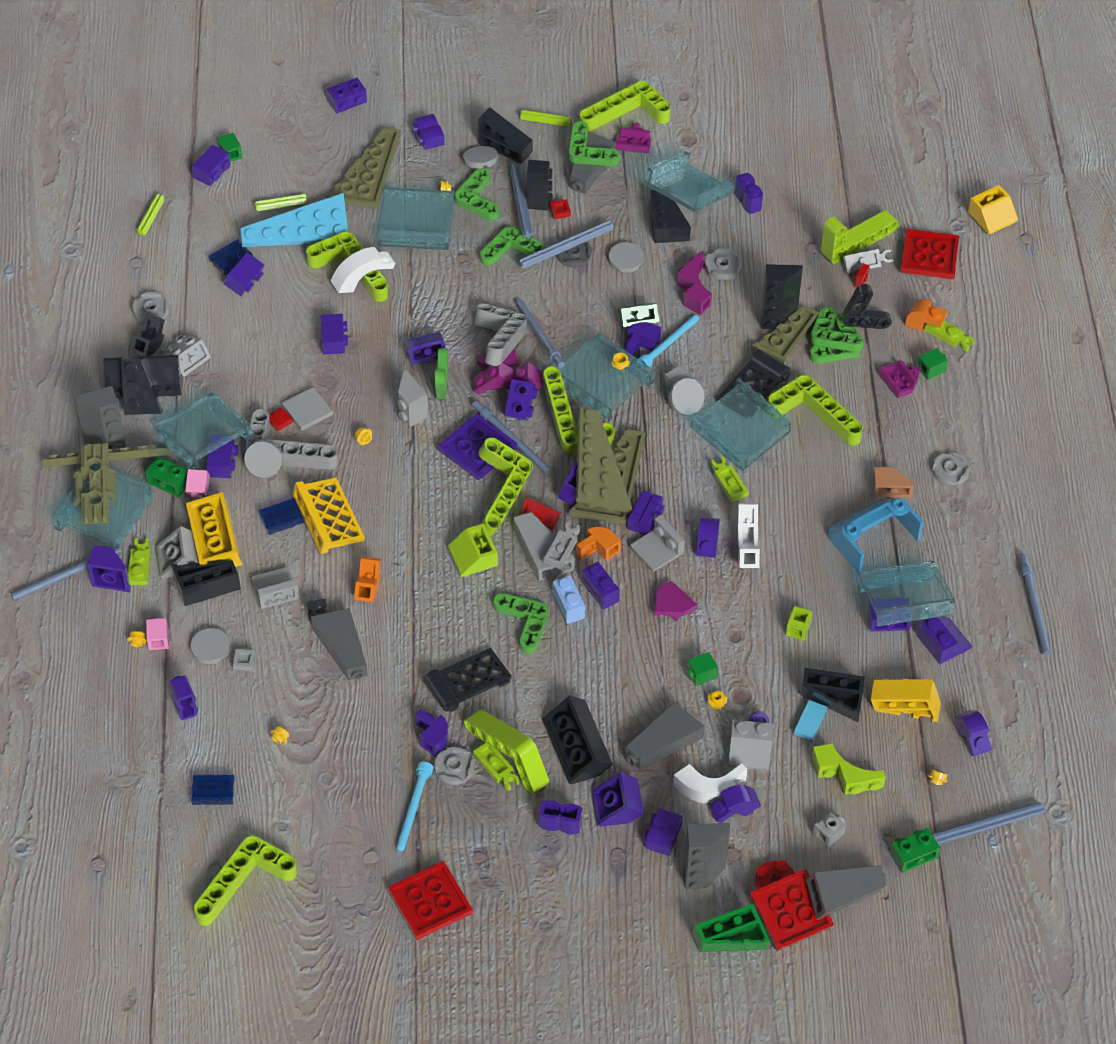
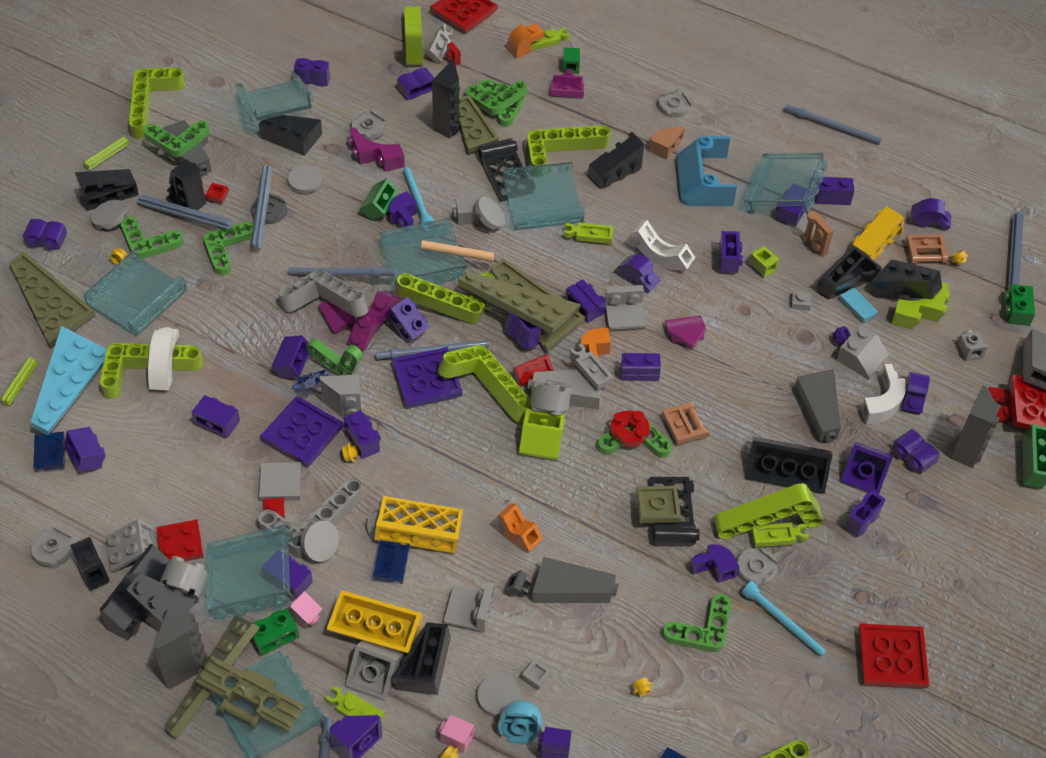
camera: 60 degrees left, 0 degrees up
(168, 394) = (184, 576): none -> light grey brick
(193, 665) = (520, 722): none -> medium azure cylinder
(209, 378) = (181, 540): none -> red plate
(361, 758) = (705, 634): none -> bright green beam
(362, 395) = (302, 431): none -> dark purple plate
(385, 433) = (361, 434): none -> dark purple brick
(411, 370) = (309, 380): none -> clear blue plate
(459, 662) = (658, 504): none -> olive plate
(507, 531) = (550, 396): none -> light grey brick
(530, 598) = (630, 418): none -> red plate
(561, 643) = (680, 426): none -> nougat plate
(568, 599) = (640, 395): light blue brick -> none
(620, 361) = (424, 232): yellow plate -> none
(620, 397) = (456, 250): none -> light nougat piece
(633, 139) = (186, 110): magenta slope -> none
(702, 669) = (768, 344): green brick -> none
(717, 704) = (802, 352): yellow plate -> none
(780, 673) = (801, 300): none -> light grey plate
(786, 590) = (730, 252): none -> dark purple brick
(811, 268) = (415, 83): none -> dark purple brick
(826, 458) = (618, 163): none -> black wedge
(854, 316) = (499, 65): black beam -> none
(858, 738) = (907, 279): none -> black wedge
(862, 646) = (822, 236): none -> nougat plate
(932, 742) = (926, 244): none -> nougat plate

